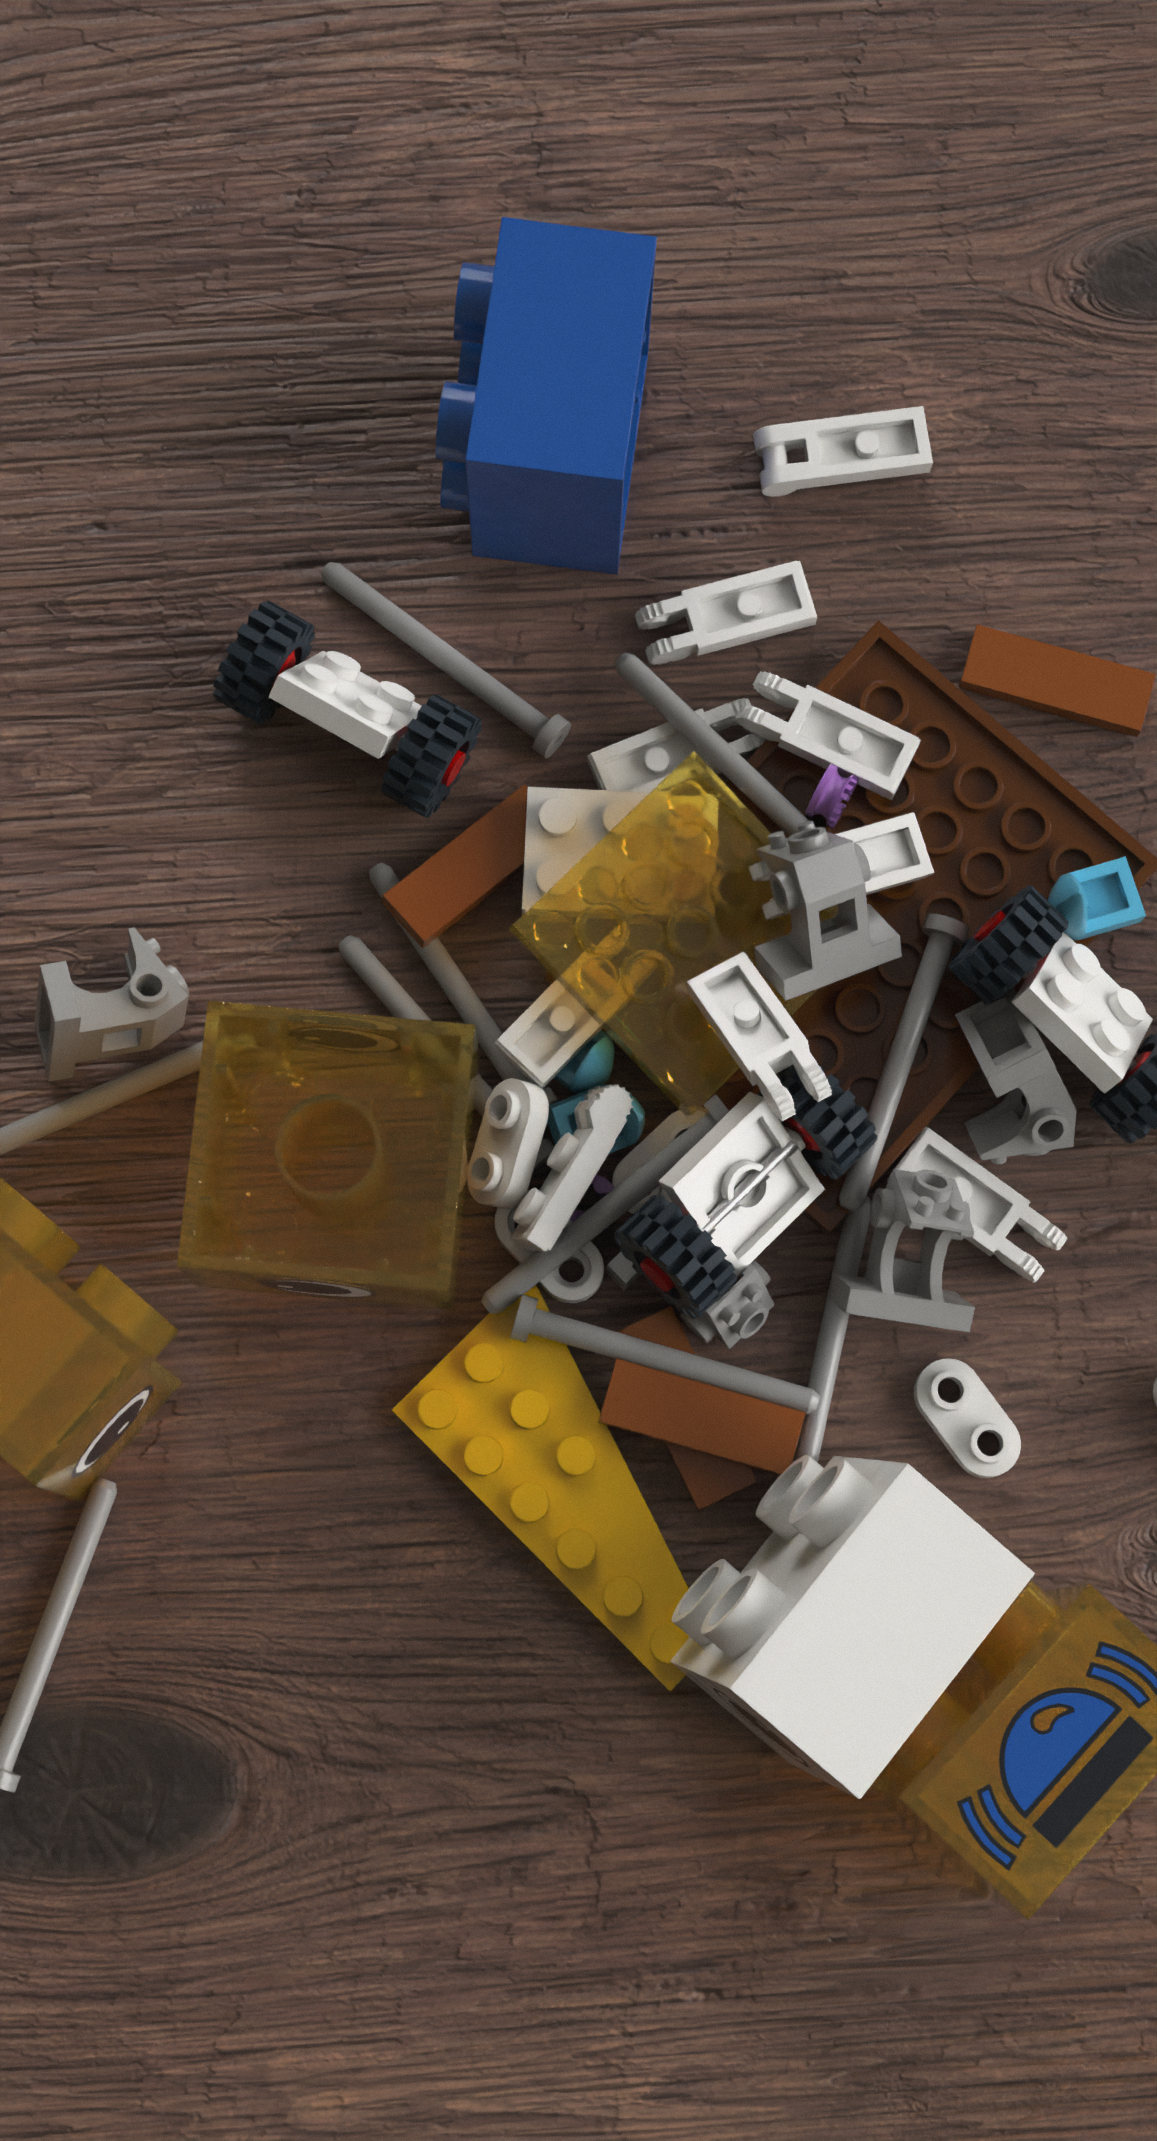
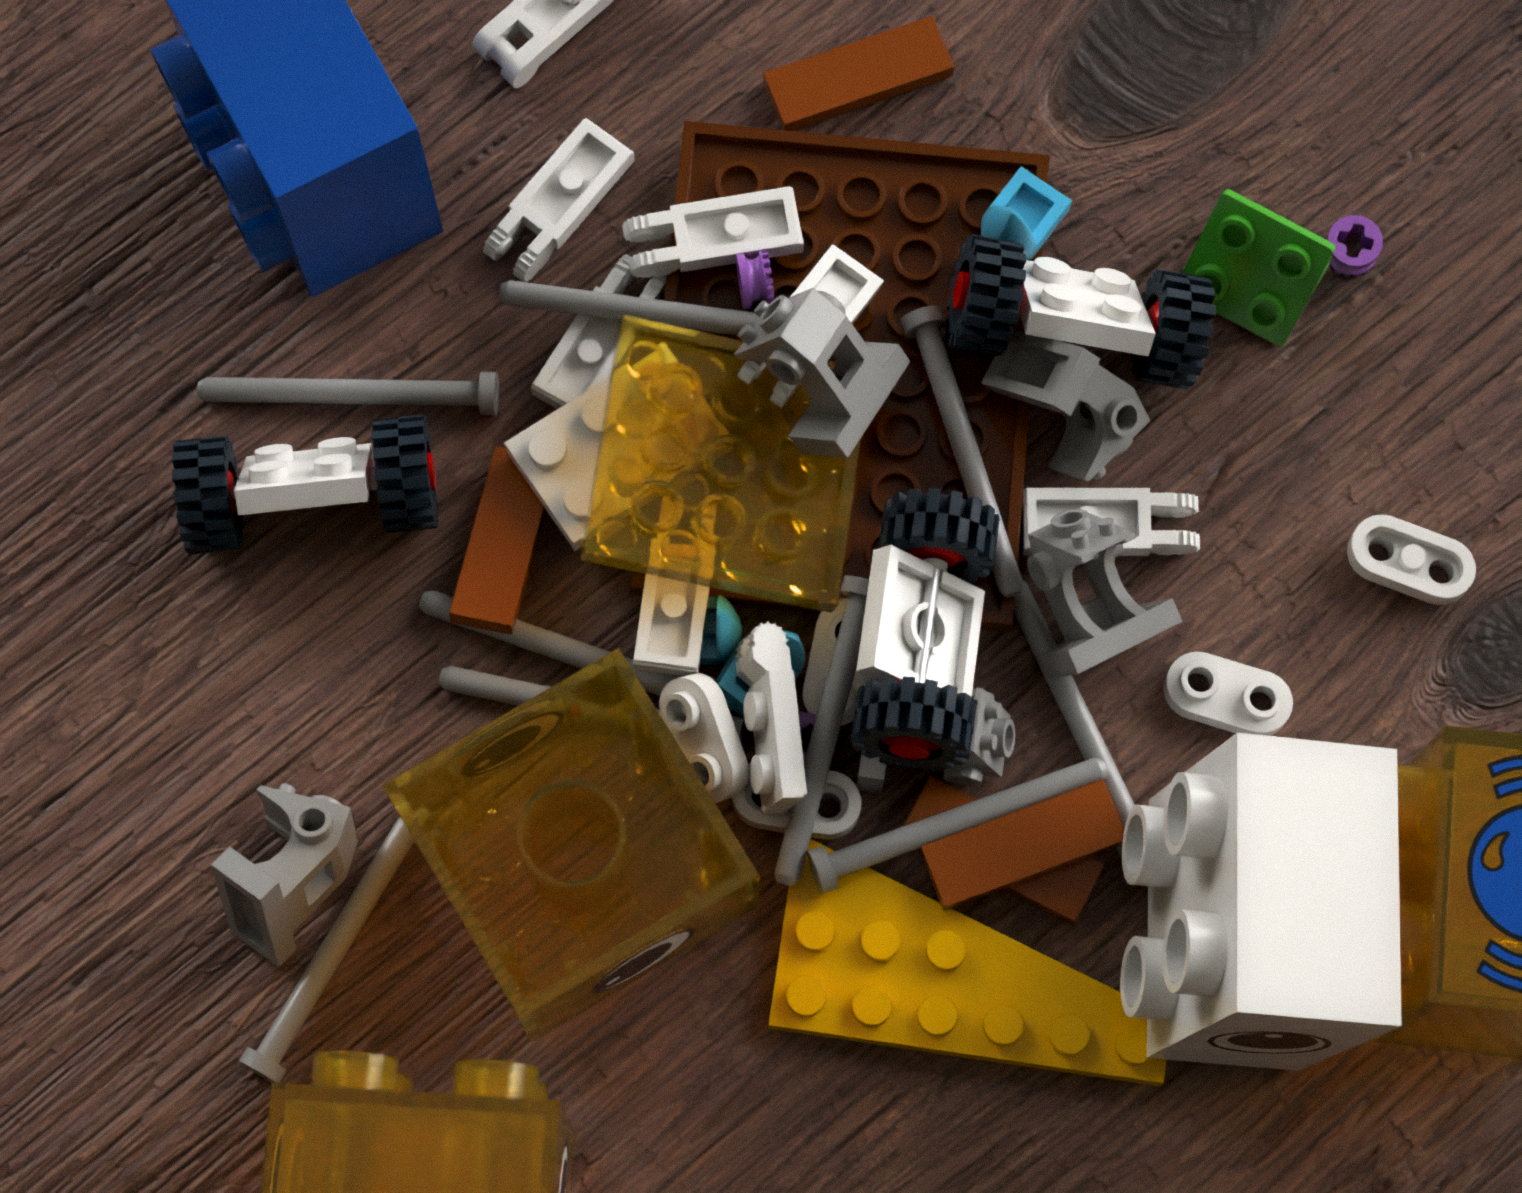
camera: 35 degrees left, 5 degrees down
(757, 1031) = (846, 497): white hinge -> none

